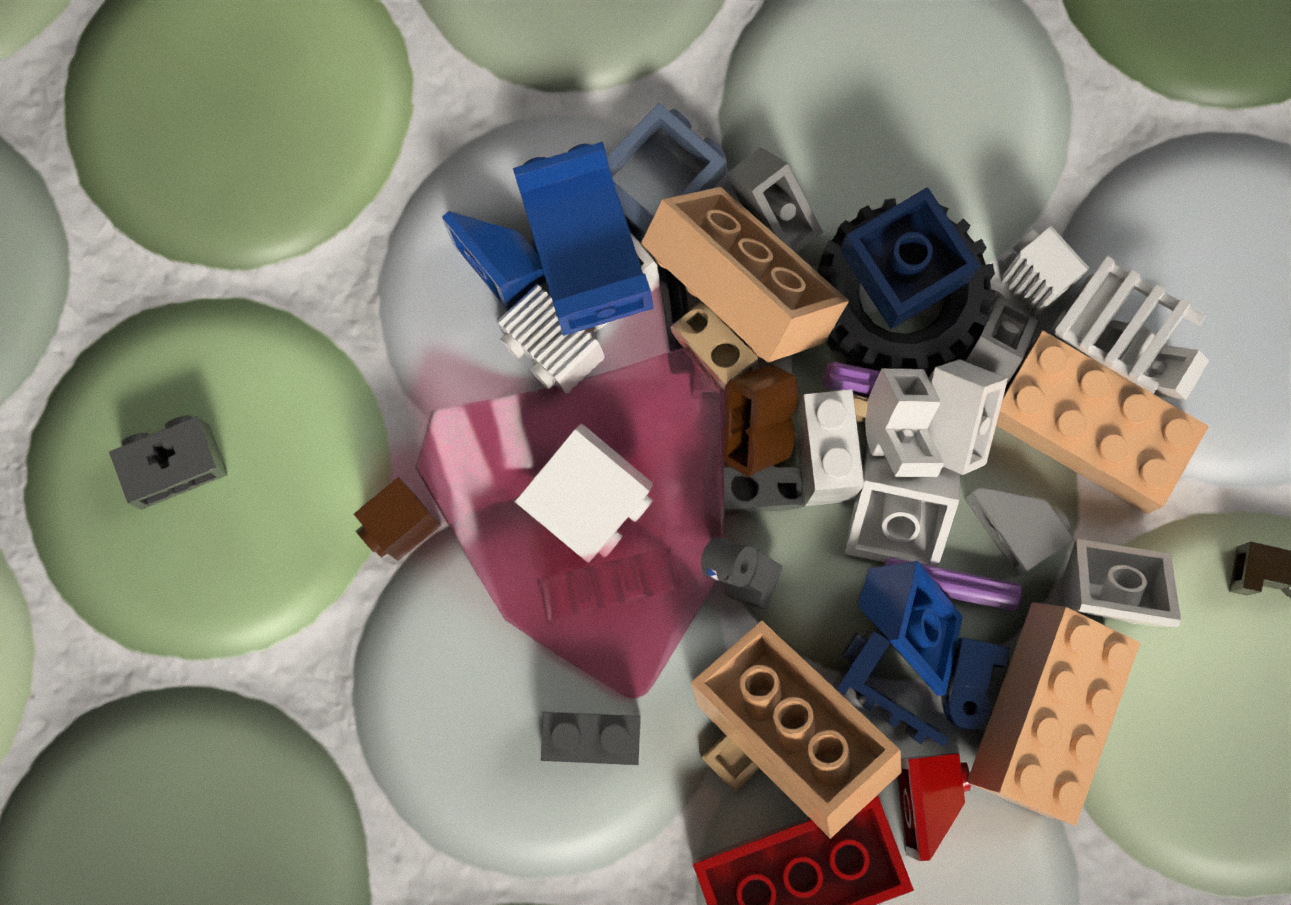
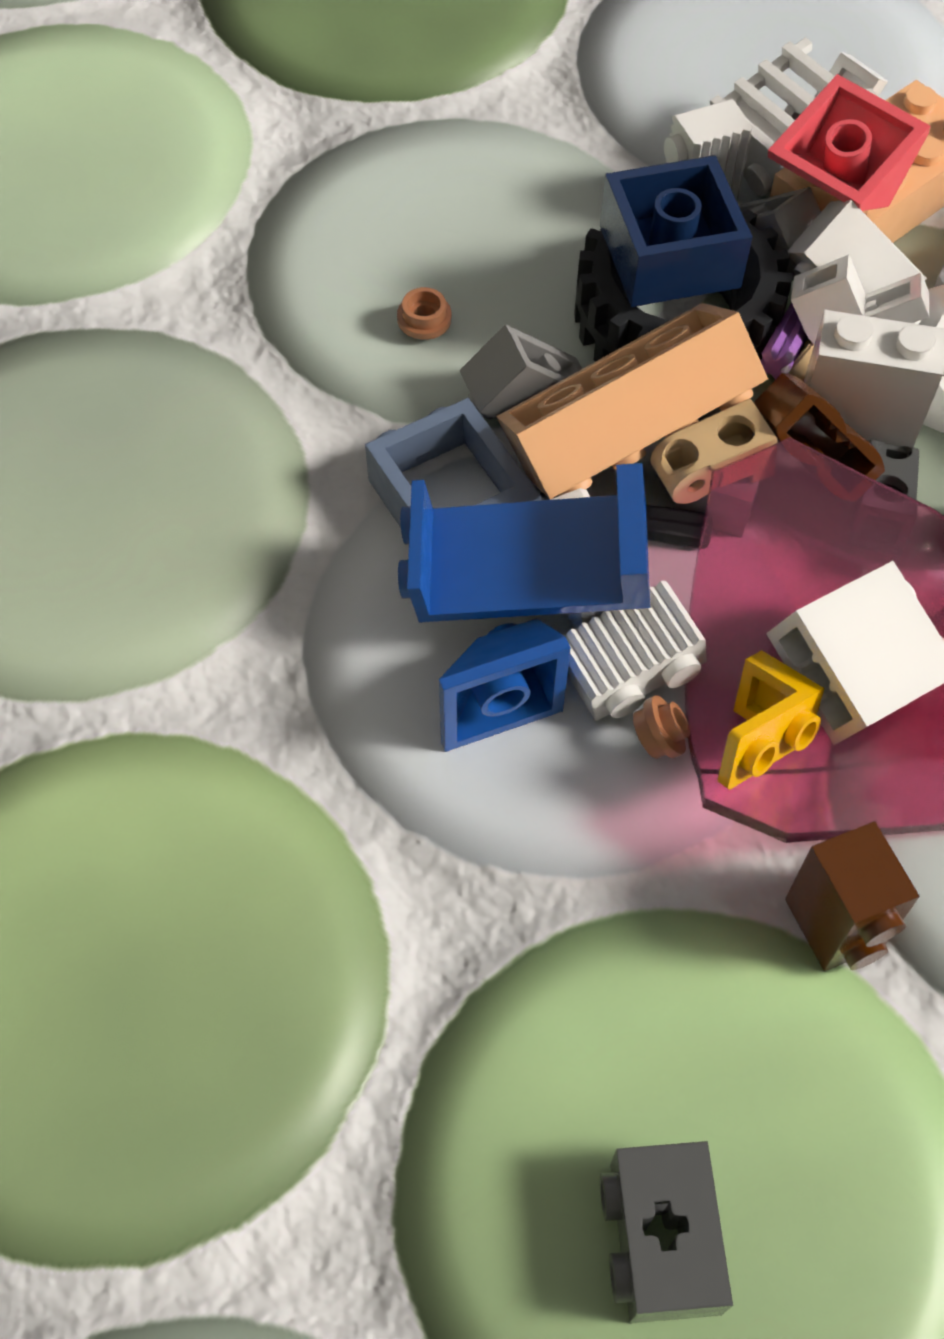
camera: 75 degrees left, 20 degrees down
(502, 376) = (661, 728): none -> nougat plate
(508, 455) = (779, 715): none -> yellow bracket
(821, 93) = (424, 314): none -> nougat plate
(1045, 373) = (852, 144): none -> coral slope

